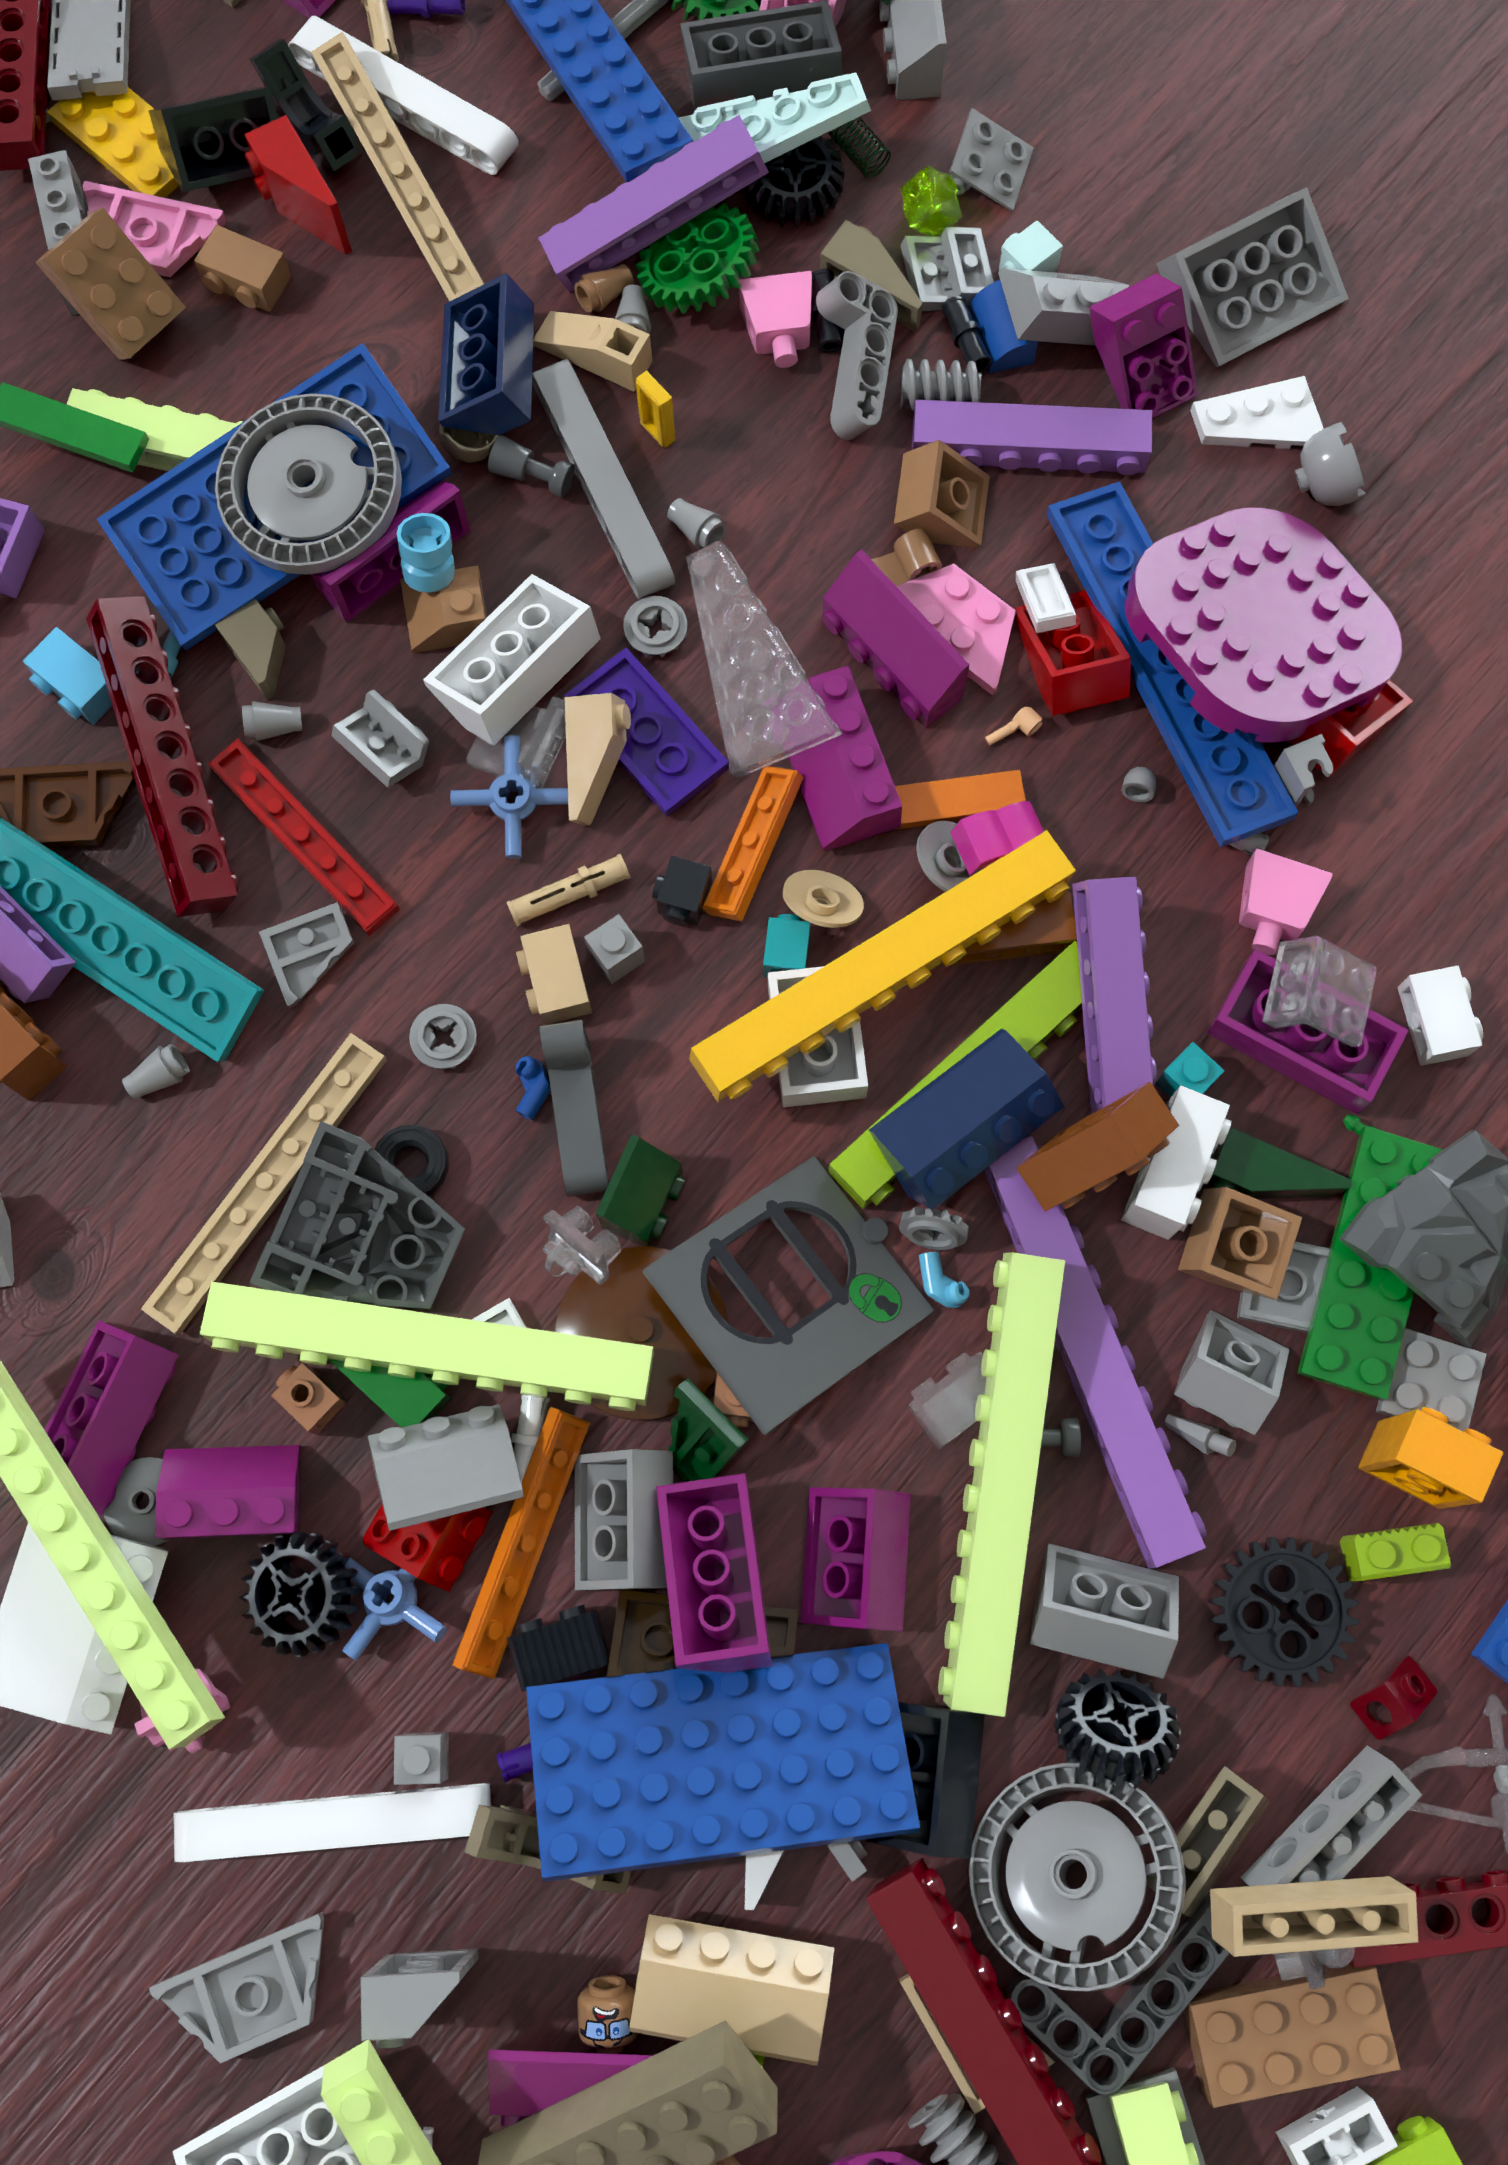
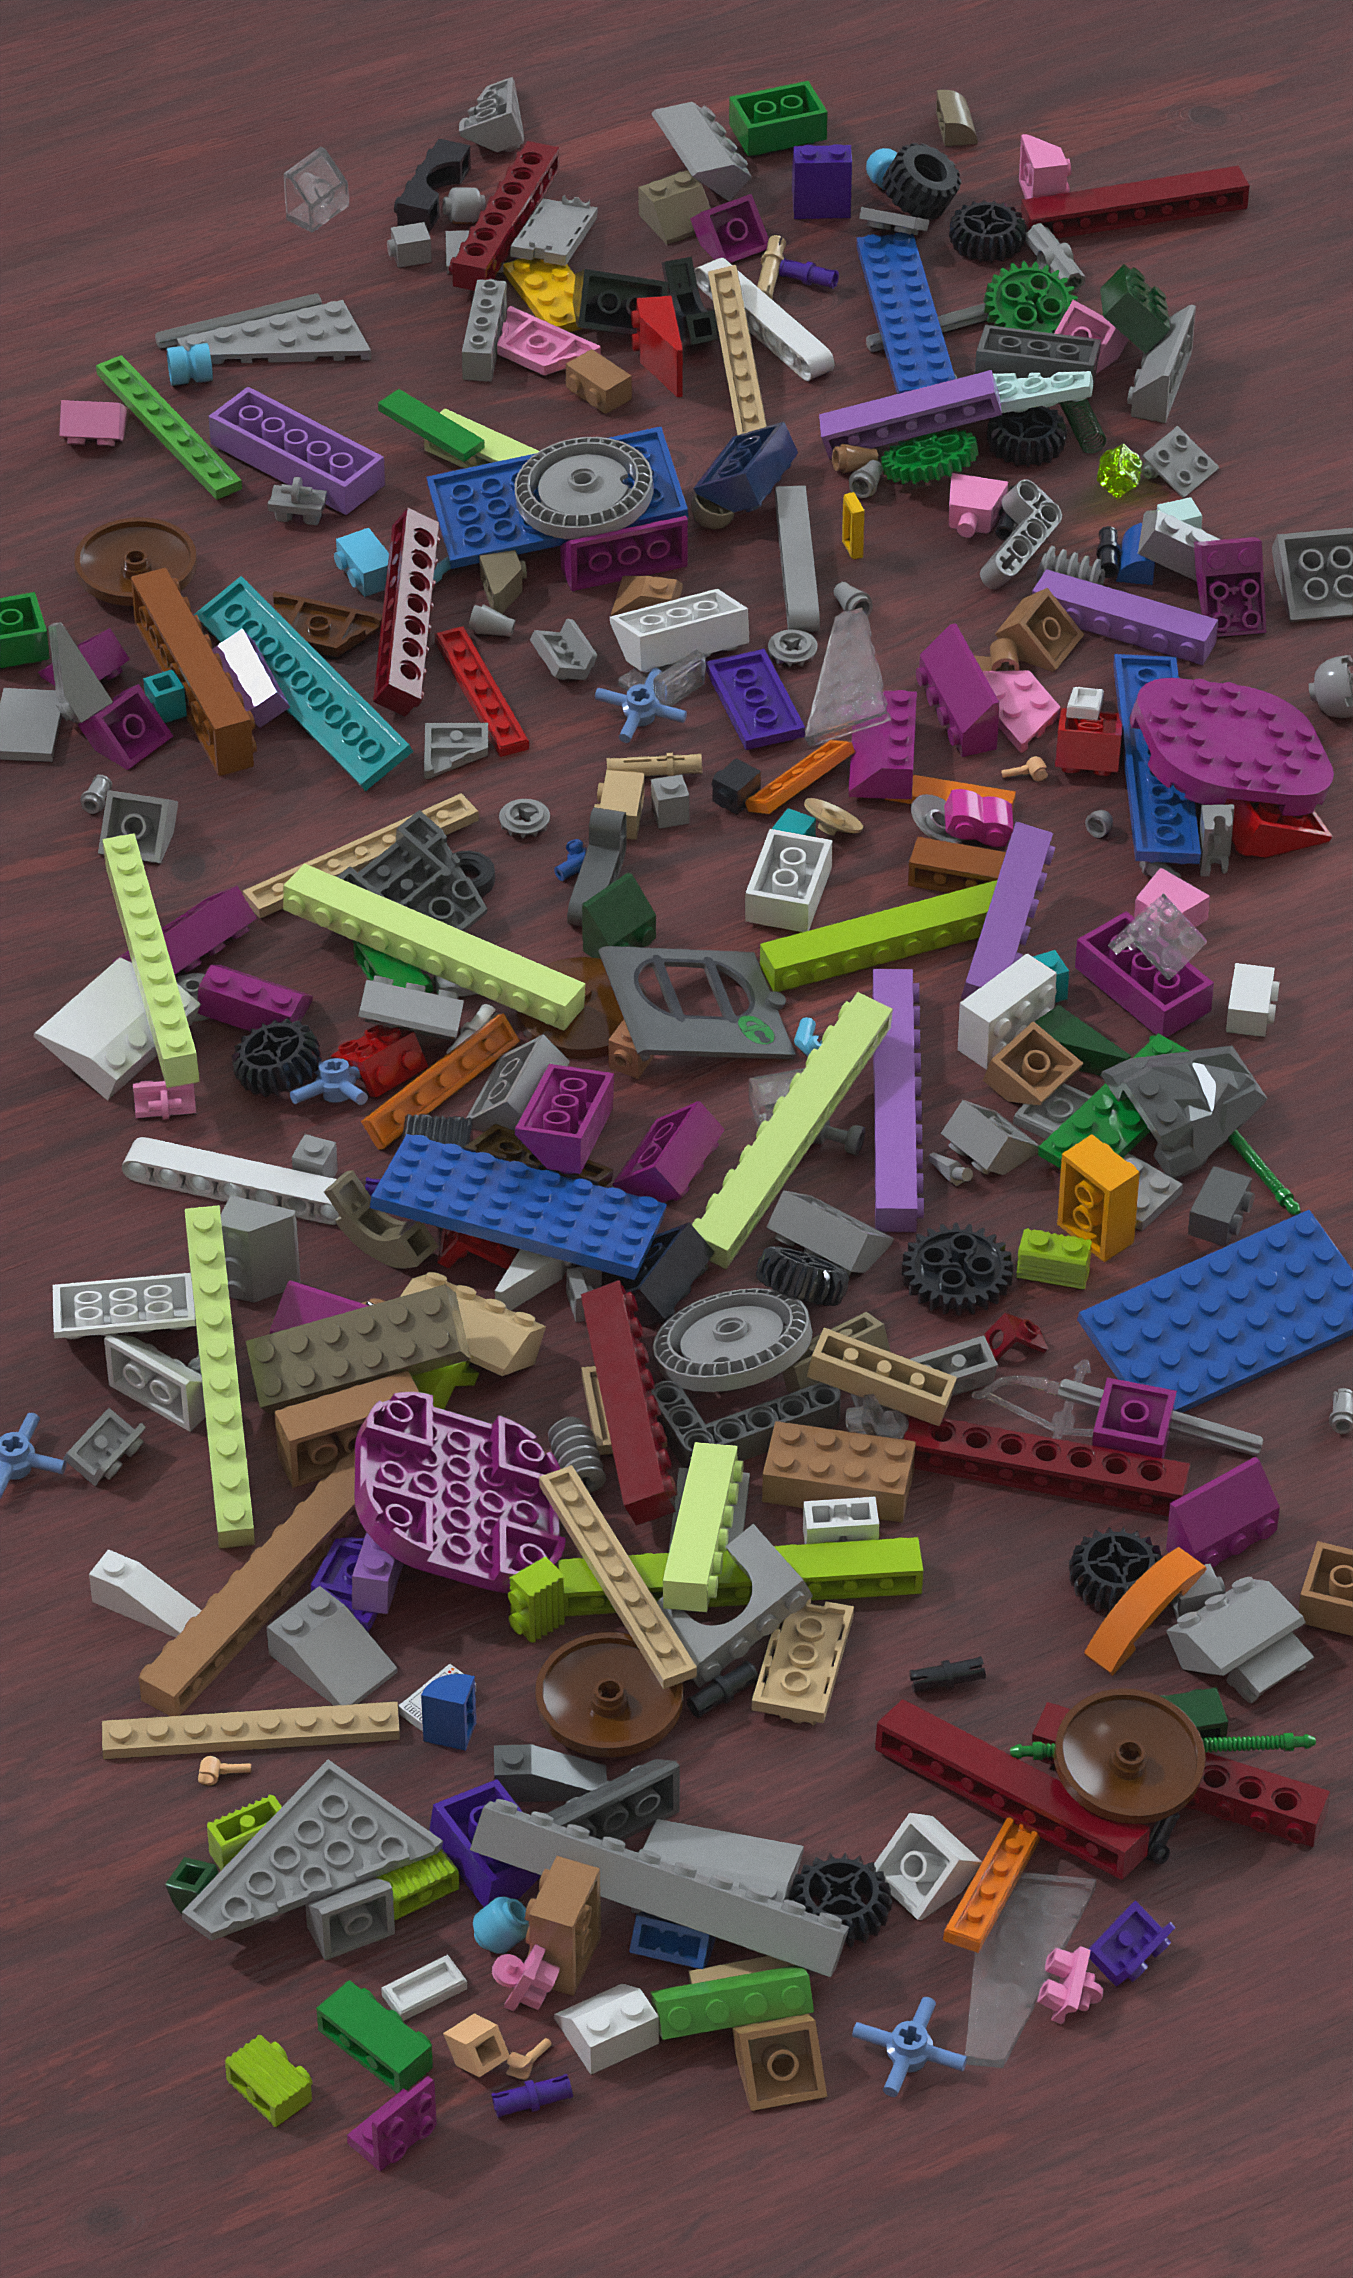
camera: 20 degrees right, 30 degrees down
(110, 284) = (501, 357): medium nougat brick -> none
(159, 1070) = (315, 779): light grey cone -> none
(250, 1991) = (133, 1246): light grey wing -> none
(308, 1398) = (333, 969): nougat brick -> none
(426, 552) = (647, 547): medium azure wheel -> none
(518, 462) = (740, 533): dark grey piece -> none
(572, 1251) = (561, 940): clear hips -> none
(593, 747) = (710, 690): tan slope -> none
(597, 345) = (829, 483): tan slope -> none
(701, 1436) = (599, 1048): dark green wing -> none
(861, 252) = (1057, 488): dark tan slope -> none
(881, 966) = (851, 839): yellow brick -> none
(933, 1228) = (809, 1007): light grey gear -> none
(946, 266) = (1112, 510): light grey slope -> none
(966, 1119) = (867, 939): dark blue slope -> none
(1098, 1148) = (949, 965): dark orange brick -> none
(1265, 414) = (1298, 651): white wing -> none

